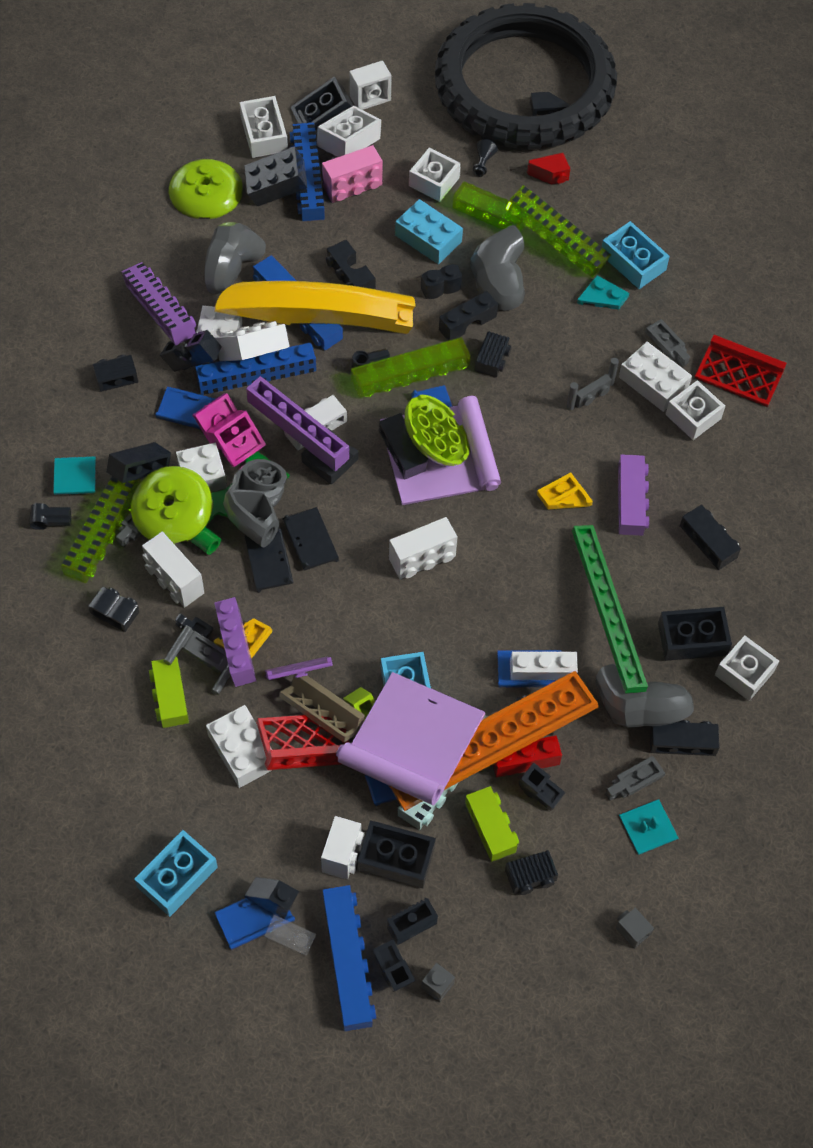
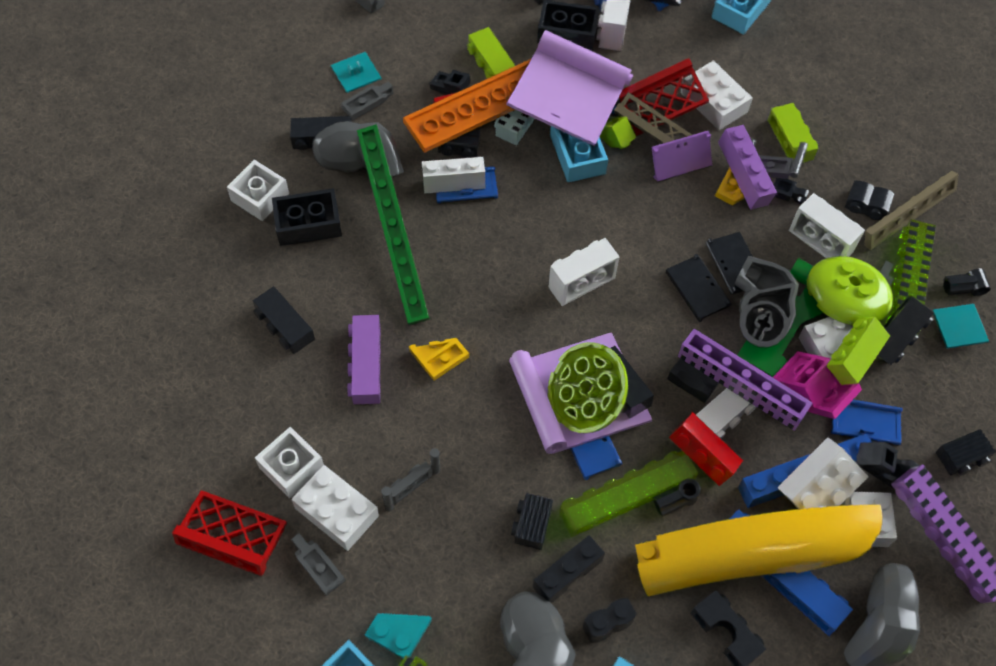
camera: 175 degrees right, 0 degrees up
(67, 598) = (911, 210): none -> dark tan plate
(188, 435) = (858, 350): none -> lime brick
(341, 384) = (706, 449): none -> red brick
(531, 872) = (454, 26): black brick -> none

